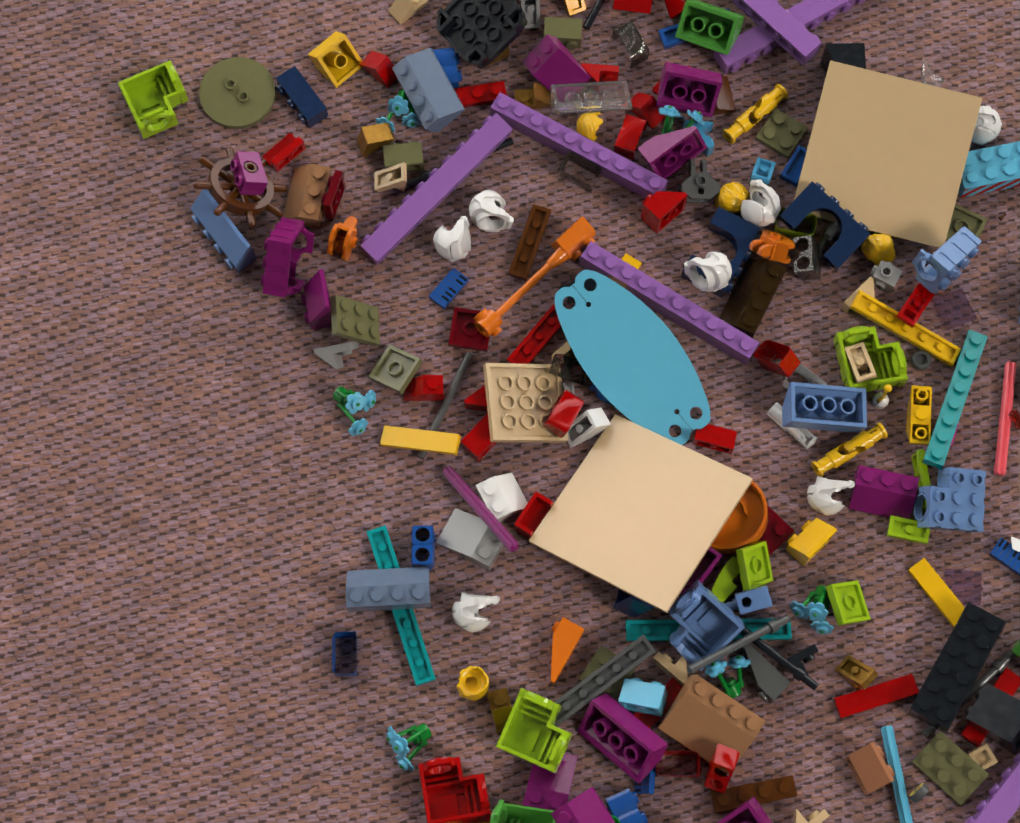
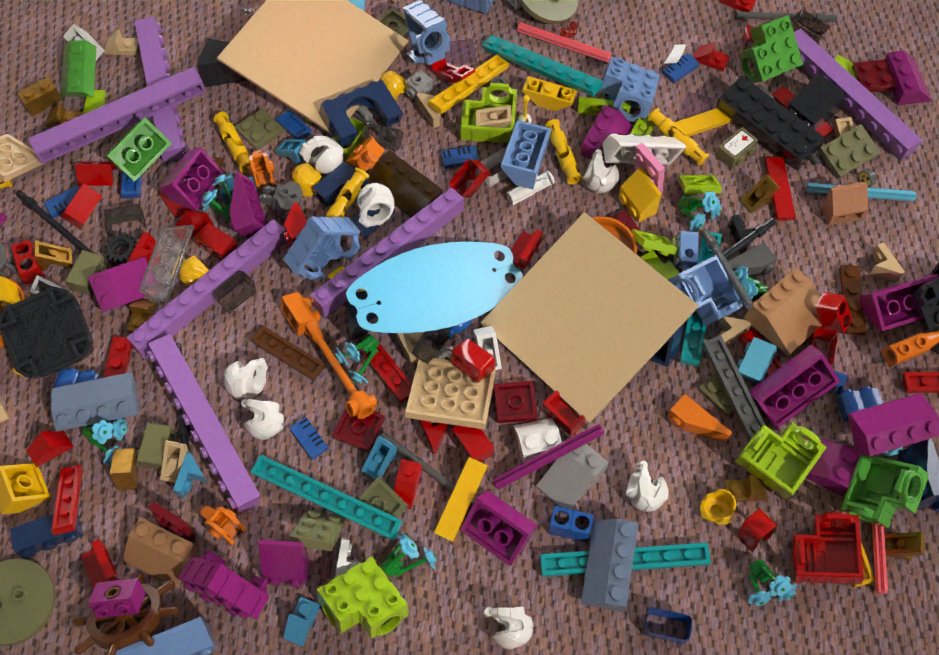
camera: 75 degrees left, 10 degrees down
(276, 334) = (301, 621): none -> dark azure slope
(304, 377) = (364, 598): none -> lime piece
(311, 519) = (517, 626): none -> white helmet
(332, 101) = (67, 500): none -> red tile
(388, 193) = (188, 471): none -> dark azure slope
(391, 320) = (327, 497): none -> teal plate
(403, 481) = (498, 527): none -> magenta slope
(440, 356) = (379, 458): none -> dark azure slope
(458, 719) = (755, 528): none -> red piece
(536, 468) = (515, 402): none -> dark red plate
(537, 294) = (367, 344): none -> plant
(598, 44) = (116, 243): none -> black tyre
(650, 234) = (319, 243): none -> medium blue piece
(698, 239) = (352, 186): none -> yellow piece
(727, 150) = (261, 169): none -> orange hinge
(810, 344) = (457, 157): none -> blue tile
(839, 542) = (650, 165): none -> bright pink plate
(871, 530) = (623, 148): none -> white slope
(900, 577) = (666, 124): none -> yellow piece
(913, 638) = (737, 148): none -> brick

